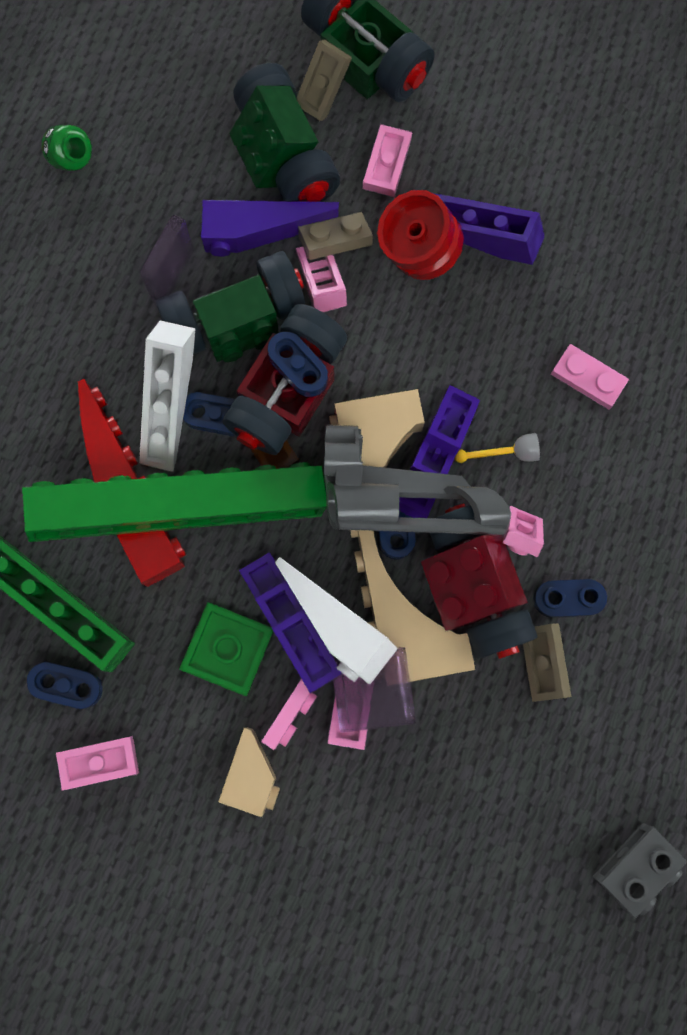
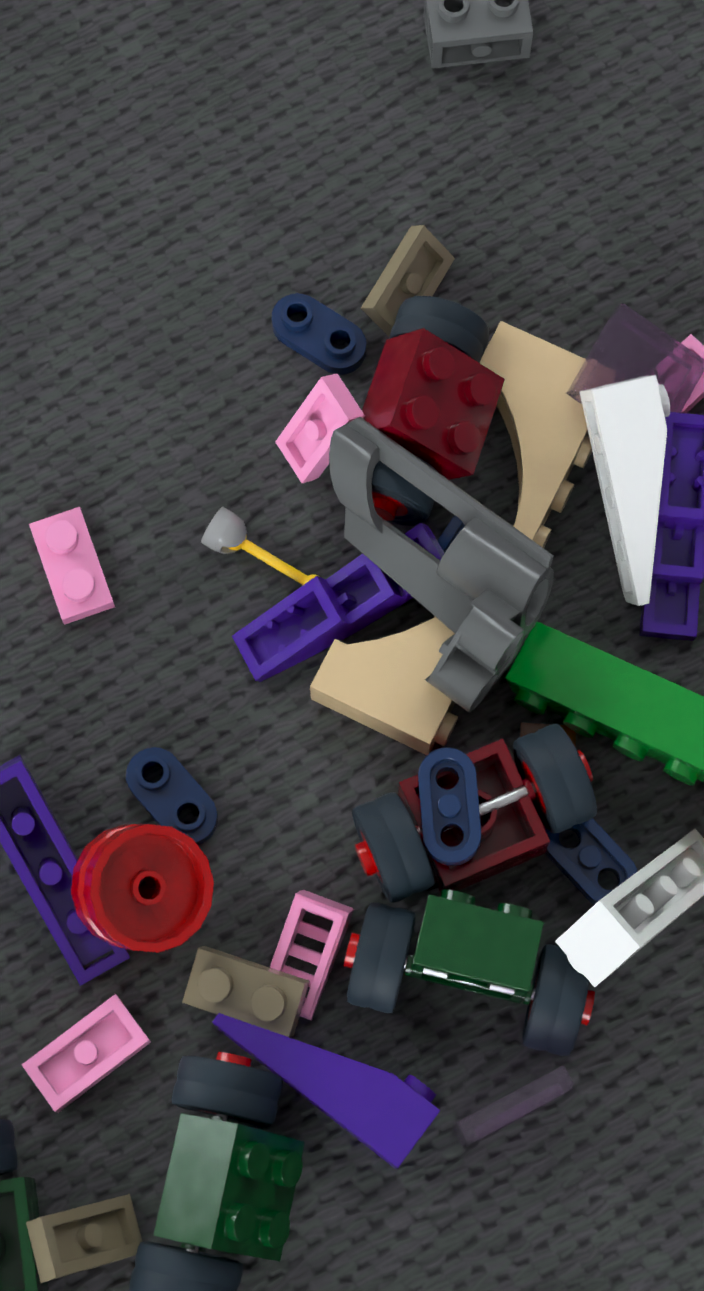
camera: 140 degrees left, 5 degrees down
(444, 301) = (171, 794): none -> dark blue plate

